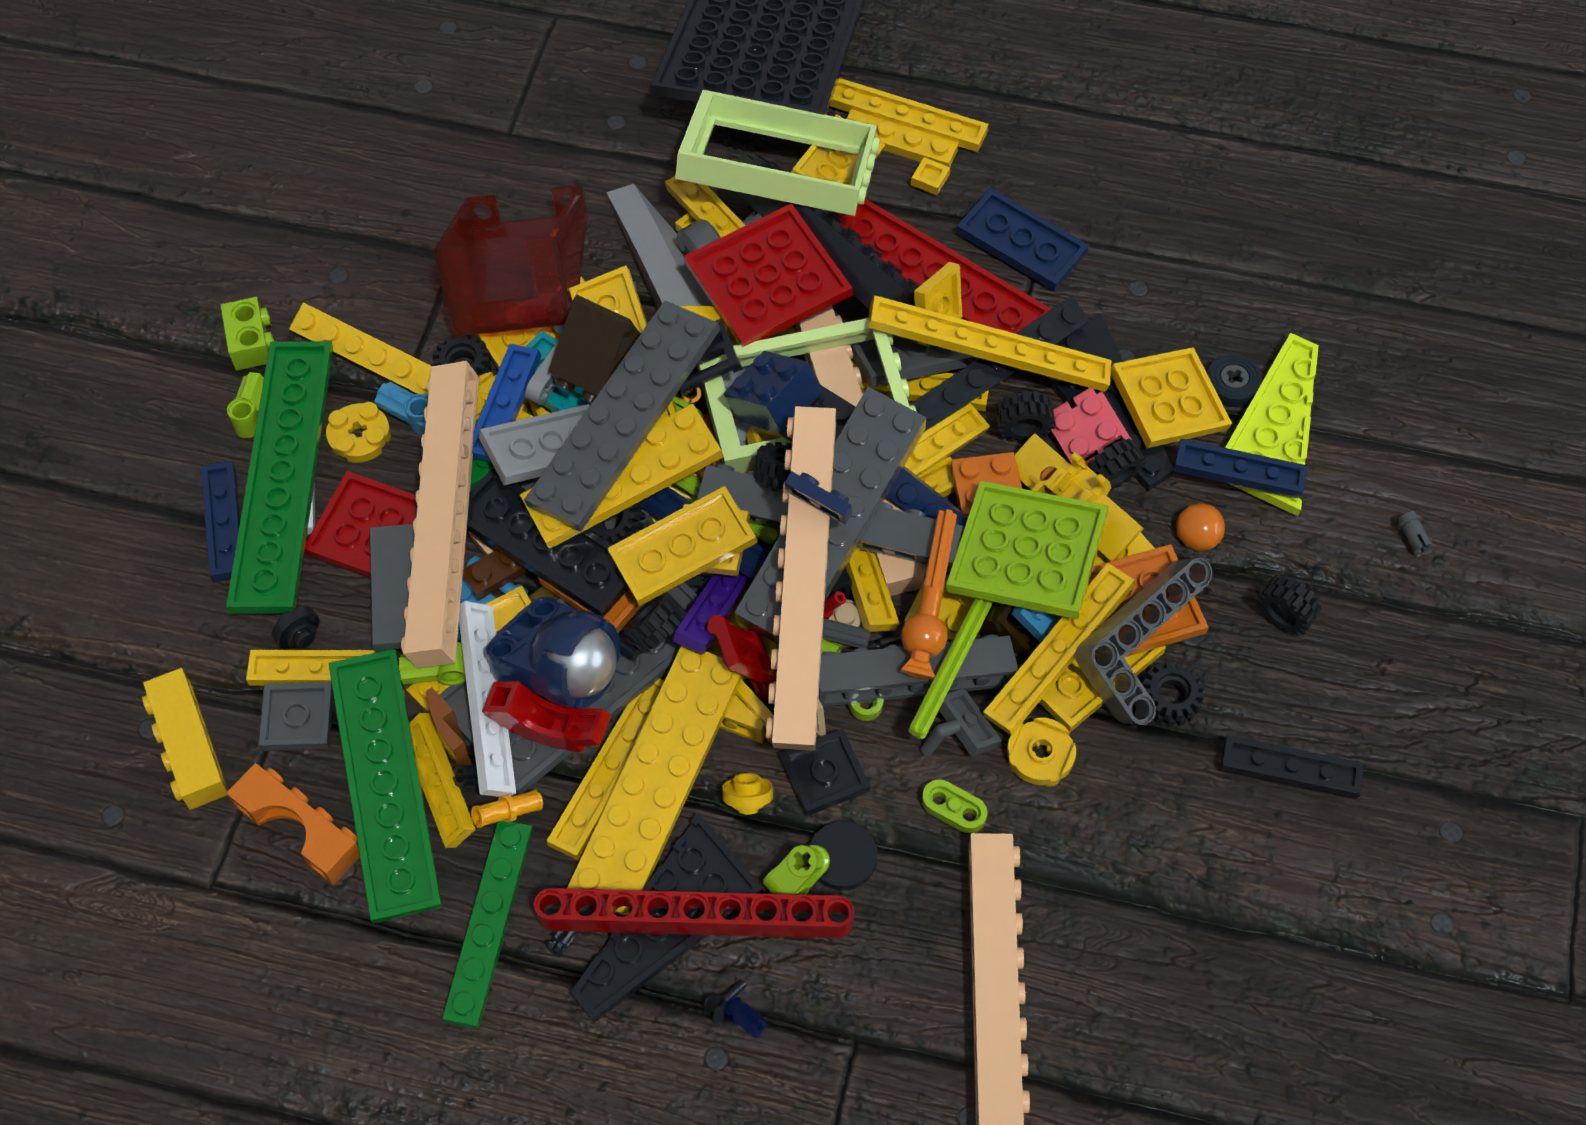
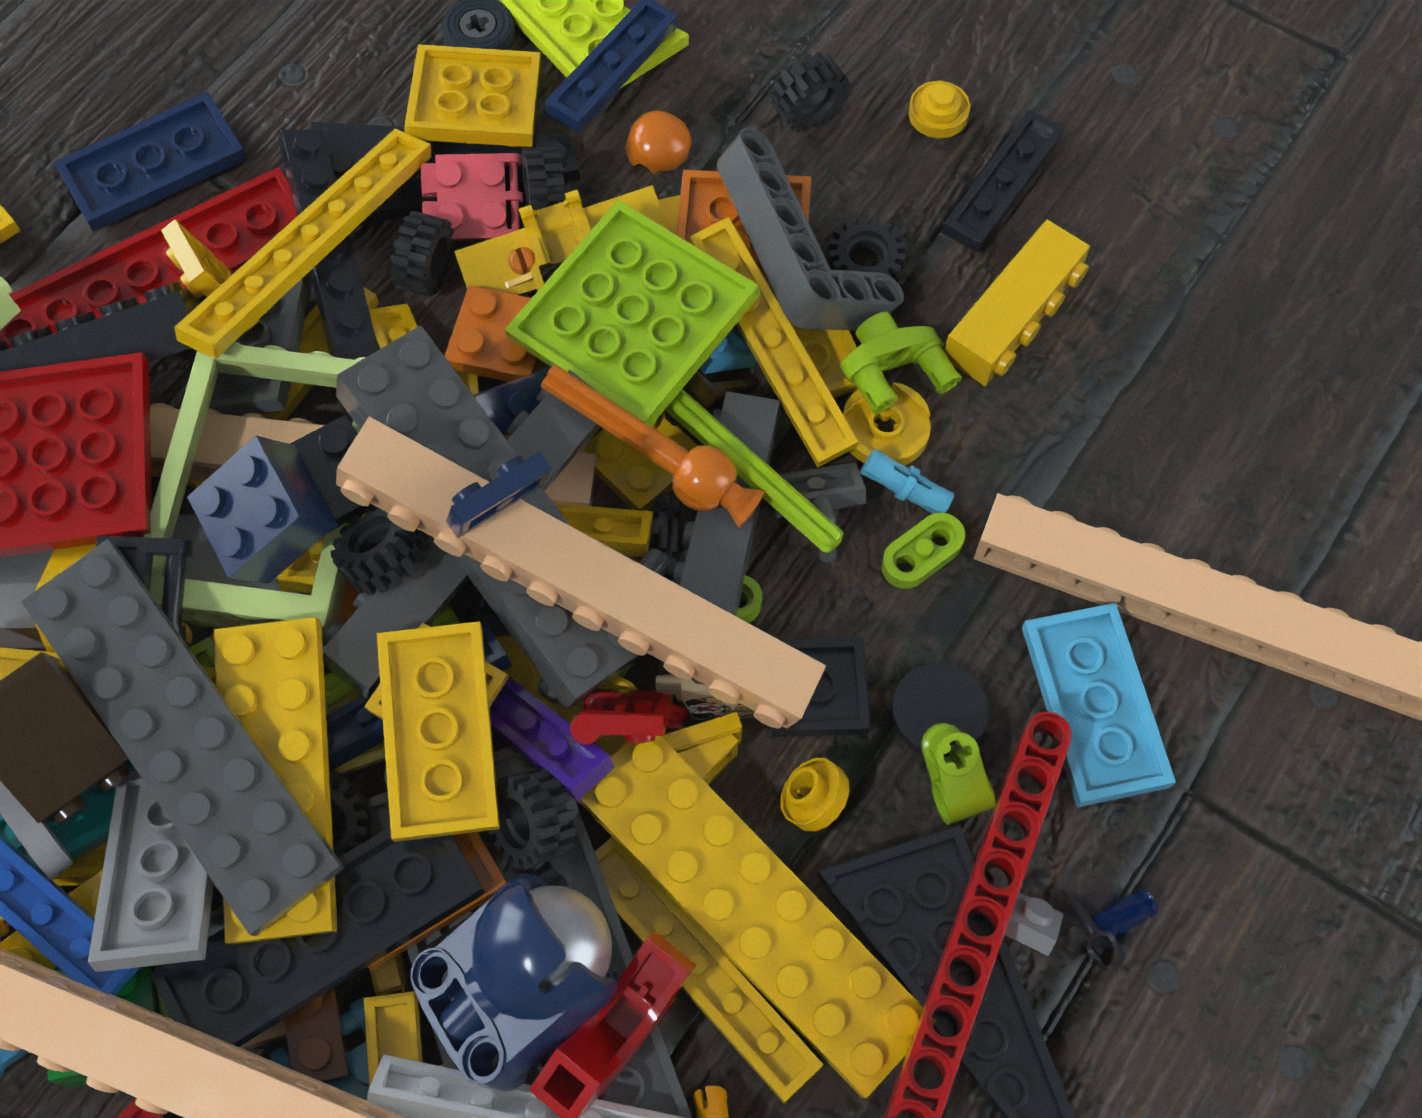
camera: 70 degrees left, 5 degrees up
(714, 955) = (1034, 924): none -> light grey plate
(888, 954) = (1097, 688): none -> medium azure plate
(999, 777) = (906, 482): none -> medium azure pin
(1098, 728) = (888, 347): none -> lime connector
(1186, 807) = (1016, 302): none -> yellow brick
(1331, 701) = (939, 109): none -> yellow plate

